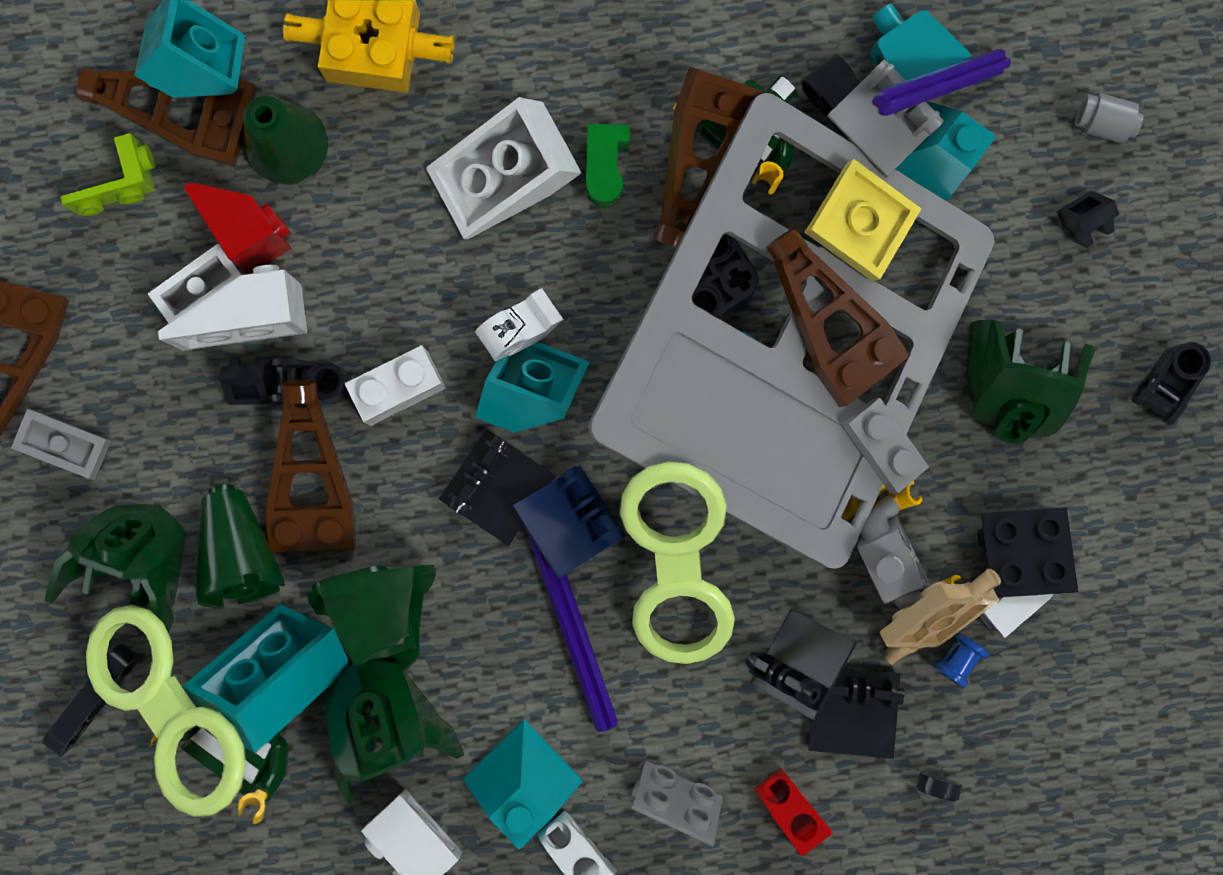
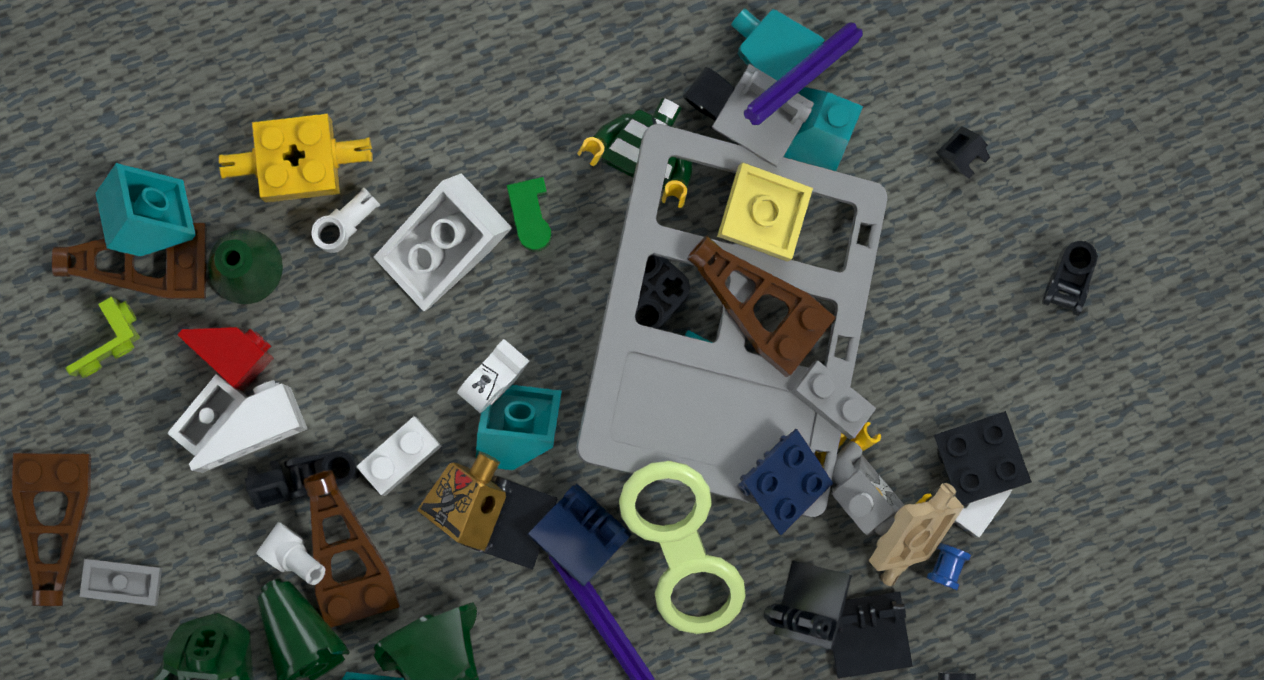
camera: 10 degrees left, 0 degrees up
(246, 458) = (287, 552): none -> white pin
(405, 120) = (345, 219): none -> white pin
(454, 453) = (466, 502): none -> pearl gold torso
(700, 98) = (600, 144): reddish brown plate -> none
(812, 520) = (786, 481): none -> dark blue hinge
(1009, 389) = (940, 329): dark green piece -> none
(1109, 117) = (960, 59): light grey brick -> none

